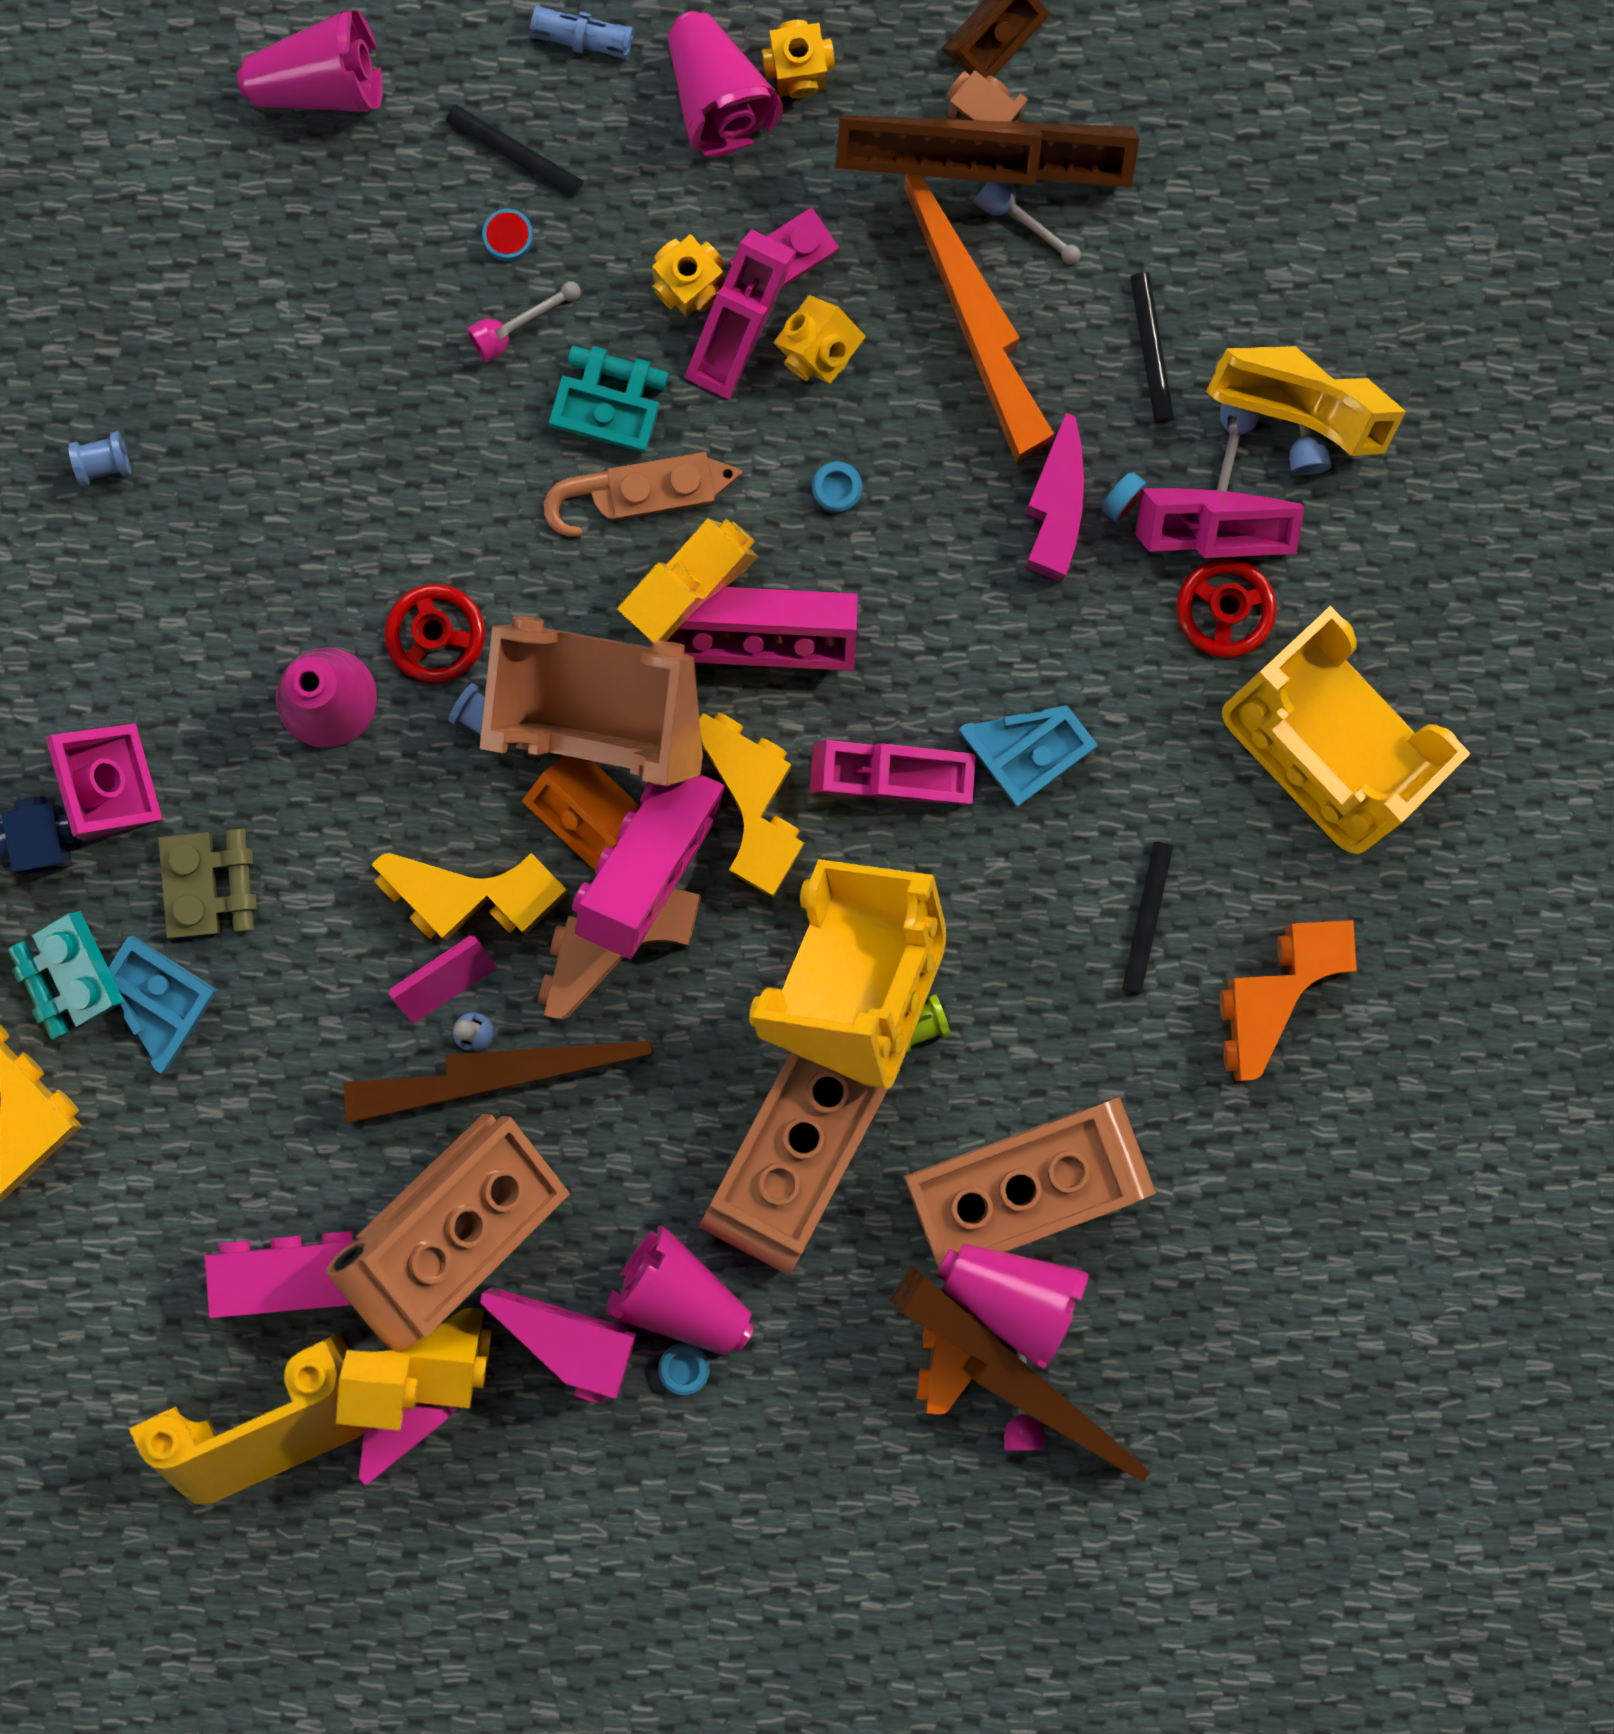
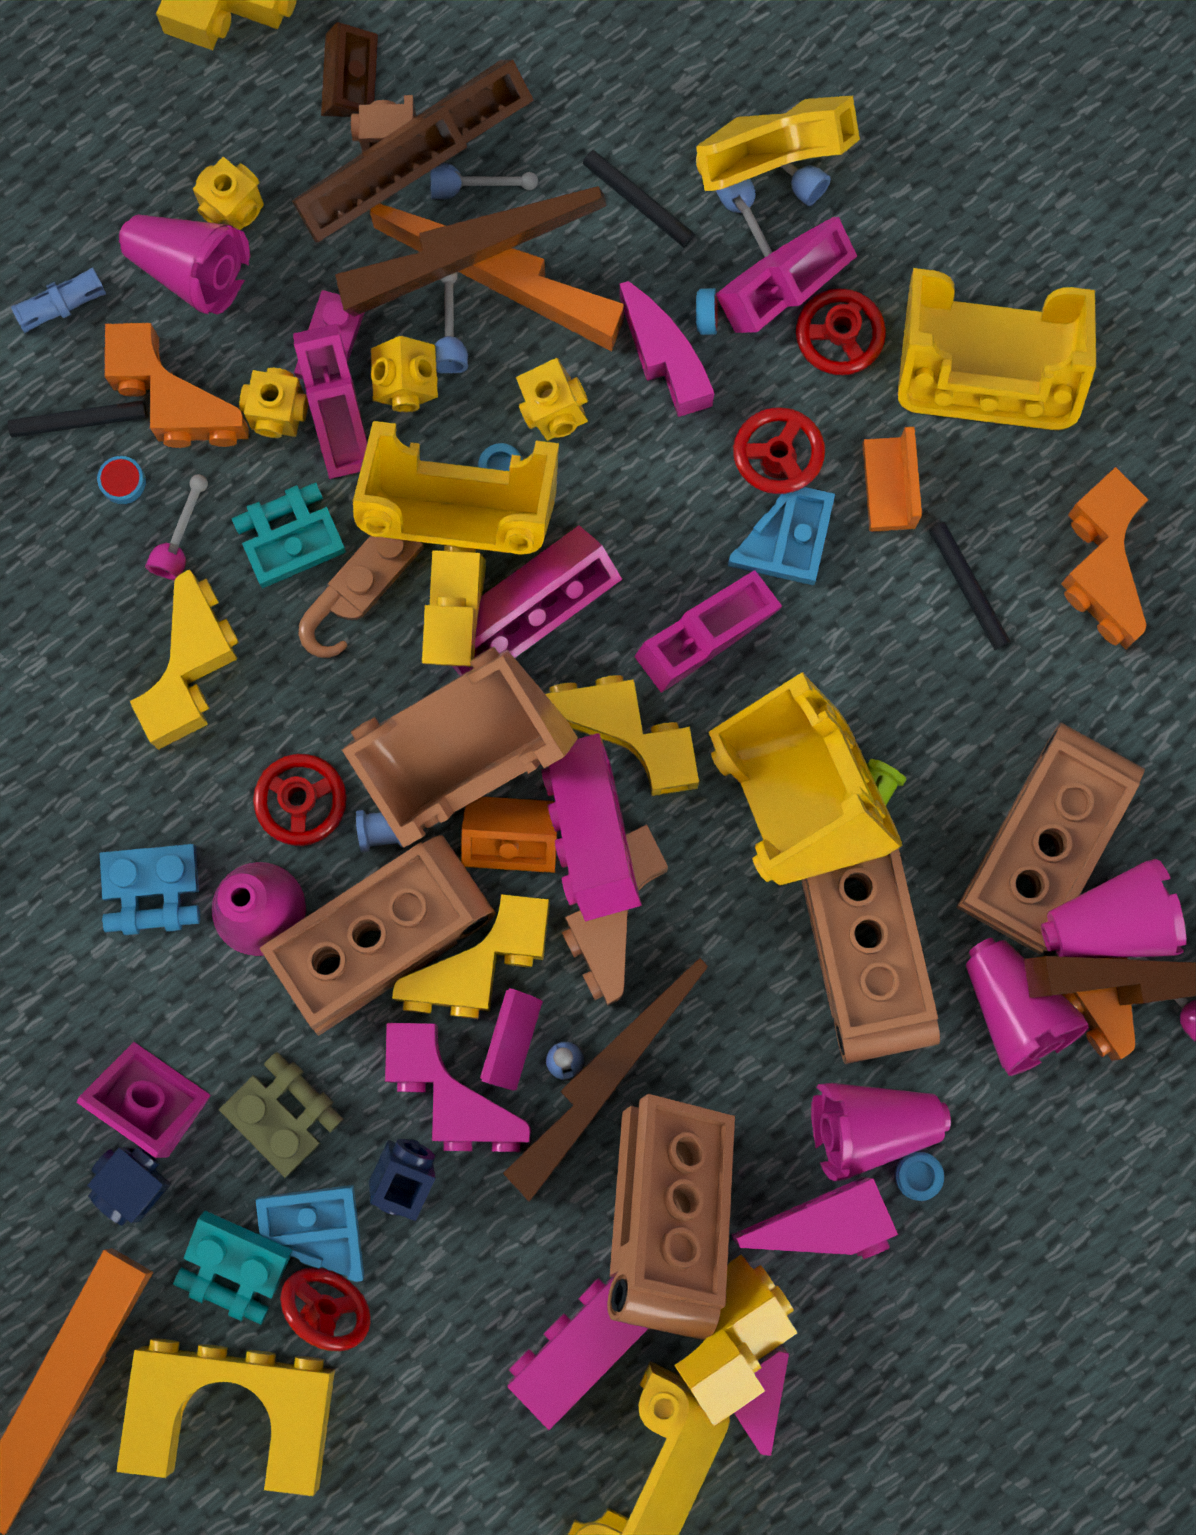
camera: 30 degrees left, 5 degrees down
(106, 1071) = (320, 1313): none -> red piece
(259, 592) = (148, 874): none -> dark azure plate
(259, 1018) = (402, 1178): none -> dark blue brick
(351, 1001) = (457, 1111): none -> dark pink arch
(454, 434) = (197, 648): none -> yellow arch
(454, 809) = (416, 904): none -> nougat hinge
(602, 211) = (176, 407): none -> orange arch
(764, 489) = (451, 502): none -> yellow windscreen
(864, 1317) = (1019, 1025): none -> dark pink cone
(875, 351) = (449, 347): none -> medium blue hinge
(925, 467) = (552, 400): none -> yellow brick
(950, 270) = (460, 246): none -> reddish brown slope
(1079, 687) = (773, 466): none -> red piece
(1155, 774) = (892, 482): none -> orange panel

